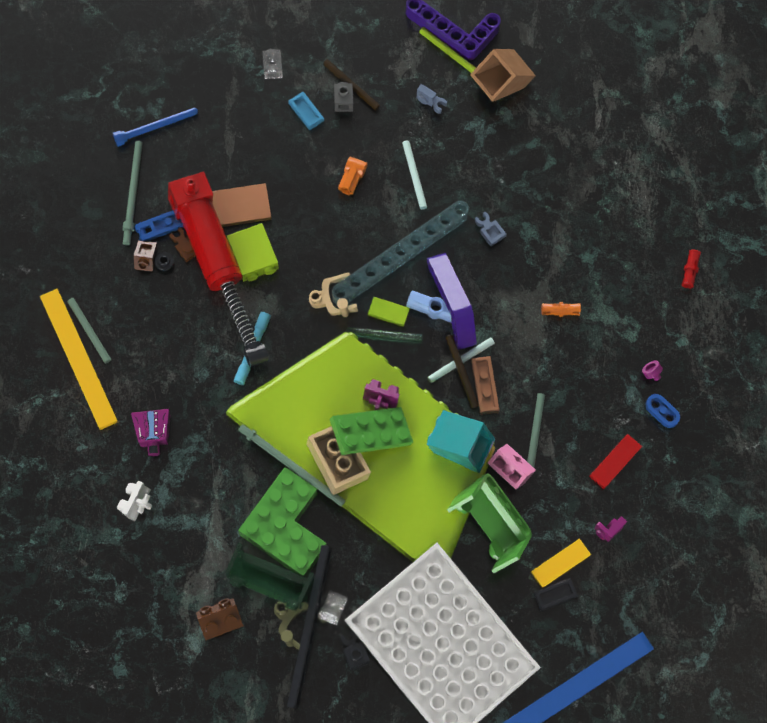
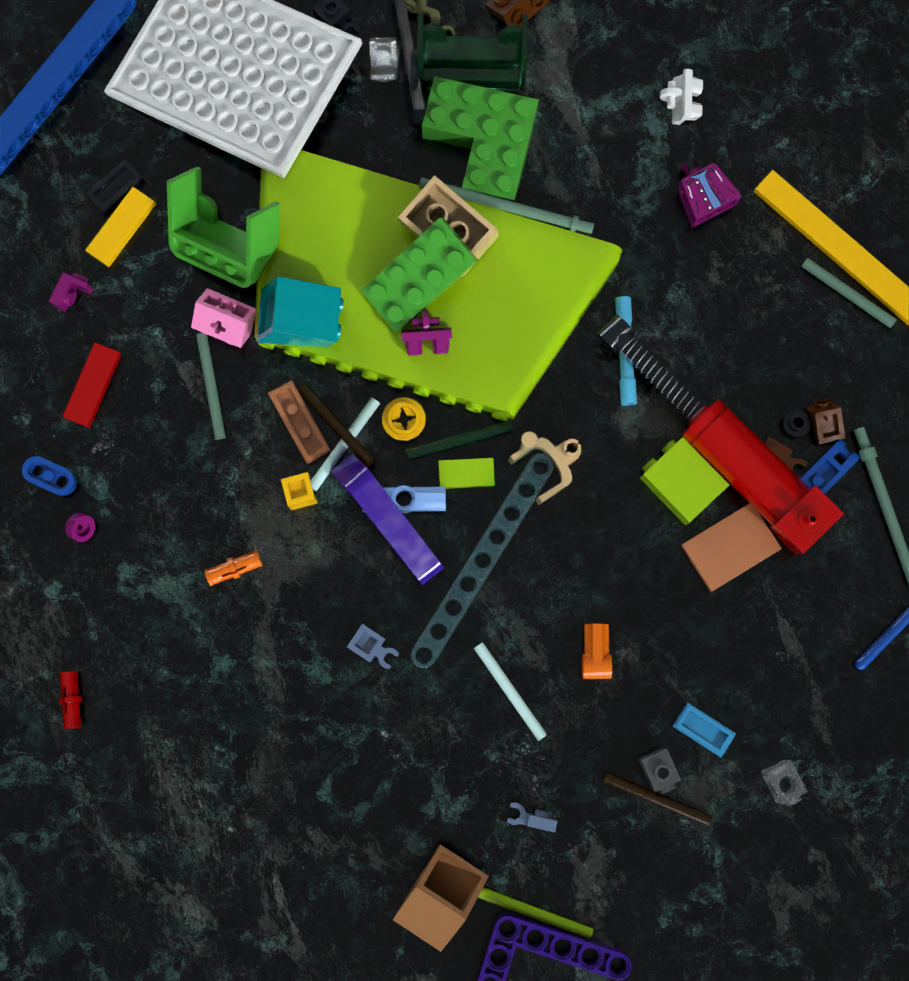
camera: 165 degrees right, 10 degrees up
(410, 353) = (393, 411): none -> yellow gear
(502, 335) = (298, 491): none -> yellow panel

